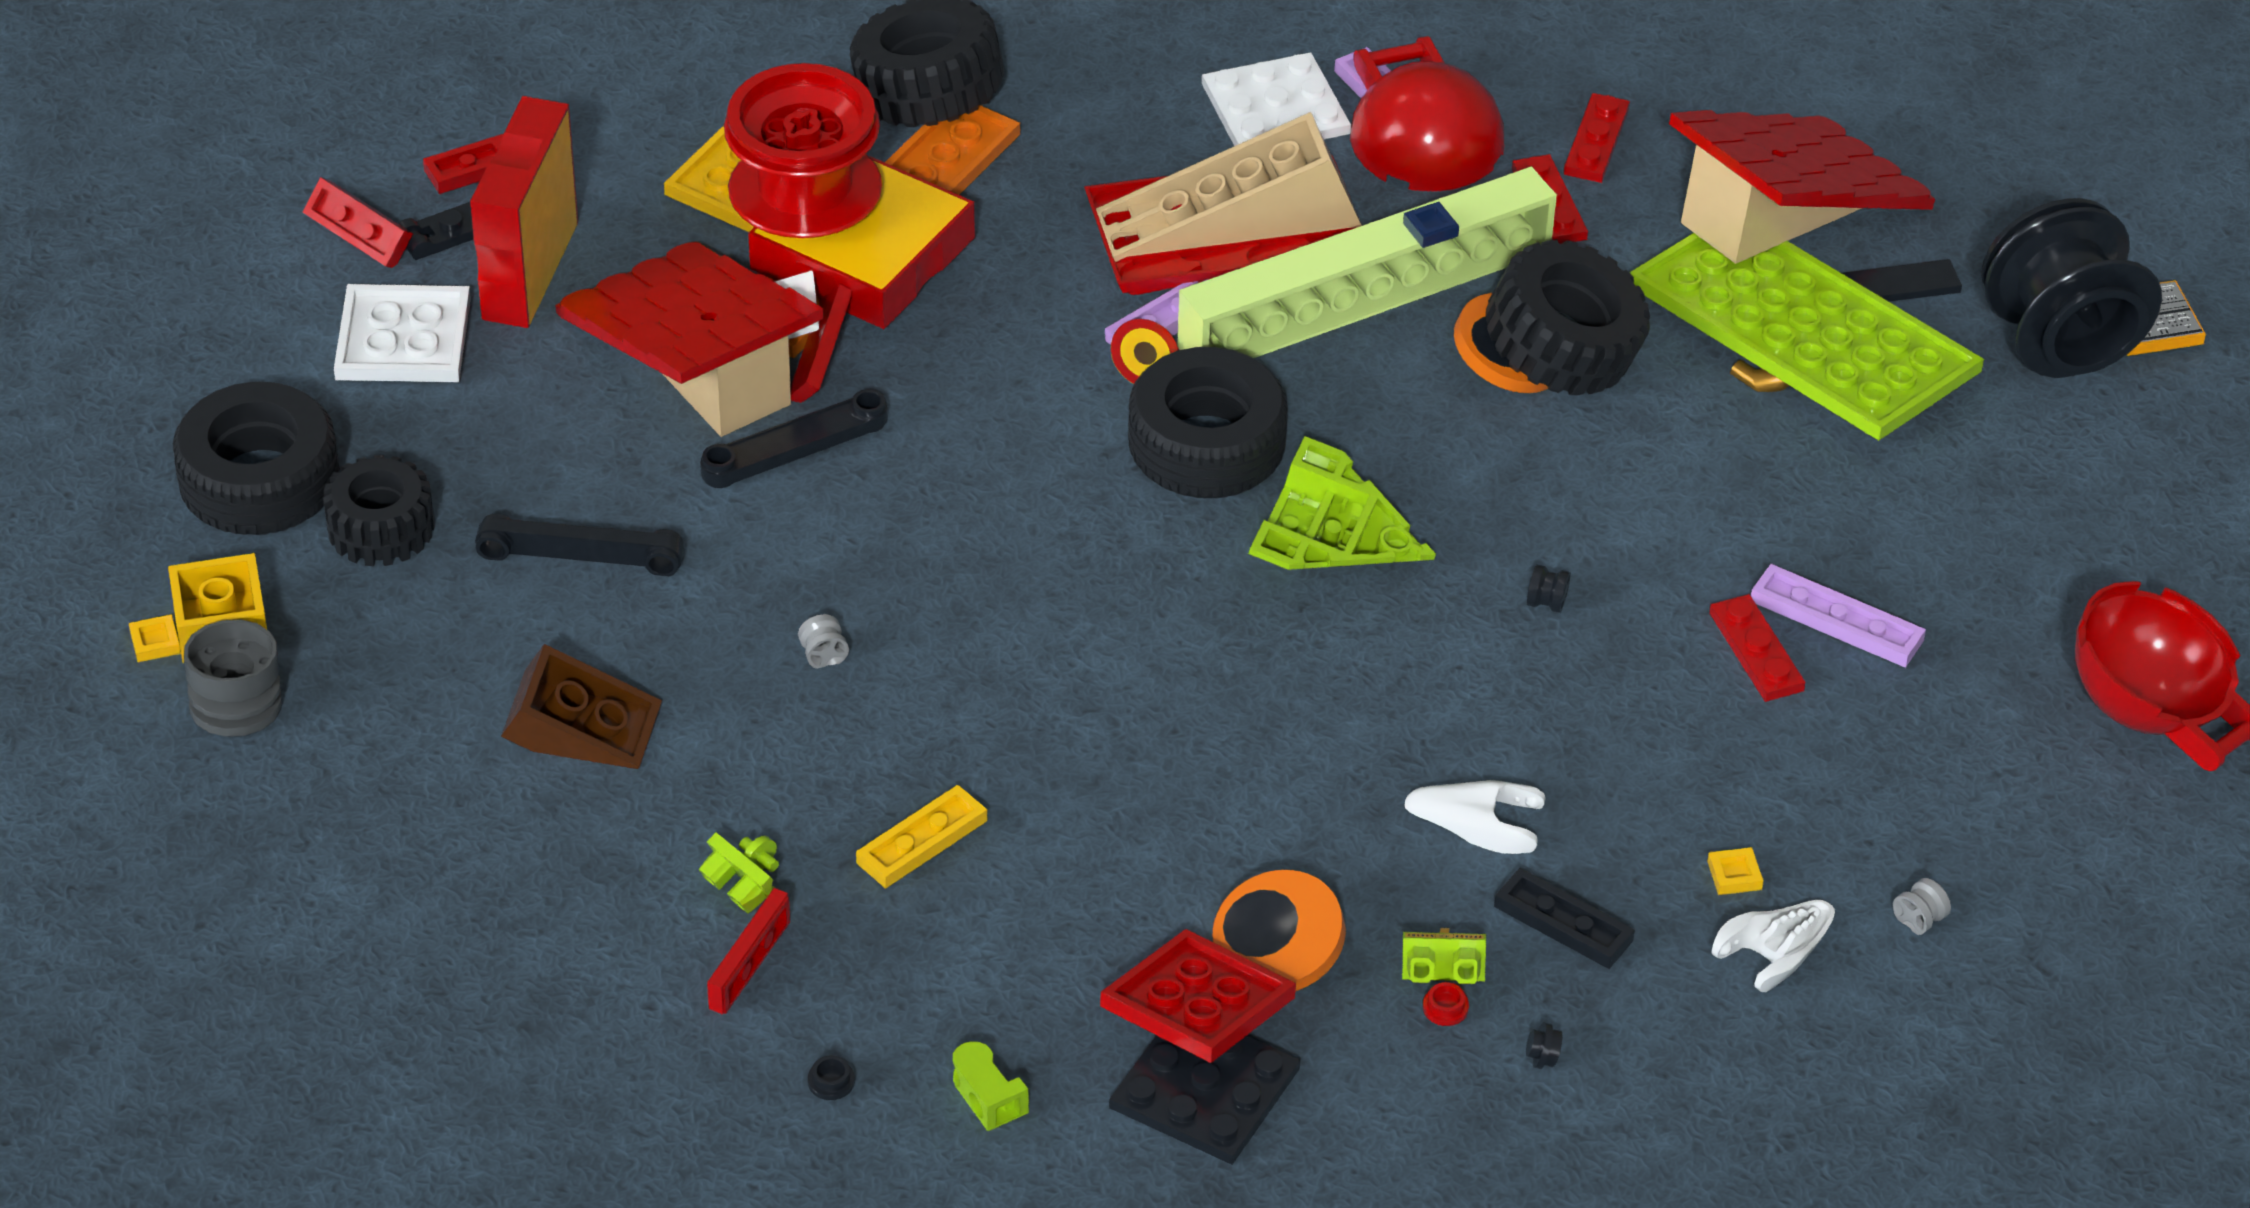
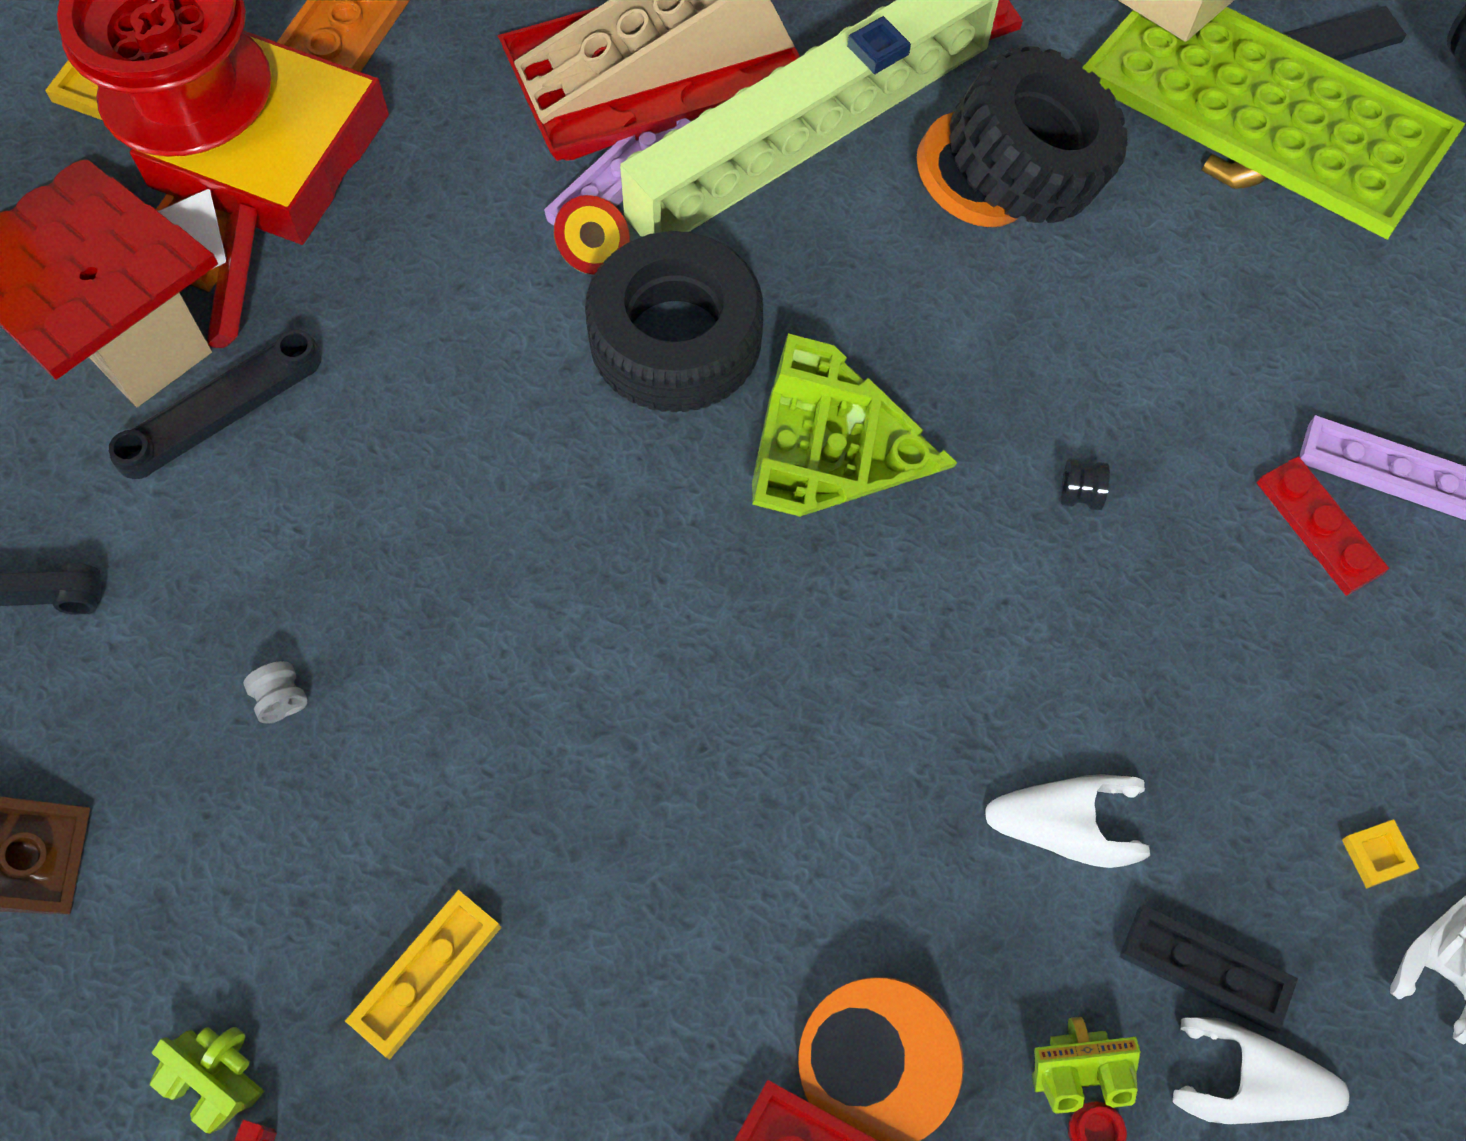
camera: 10 degrees left, 20 degrees up
(1590, 994) = (1273, 1082): none -> white animal

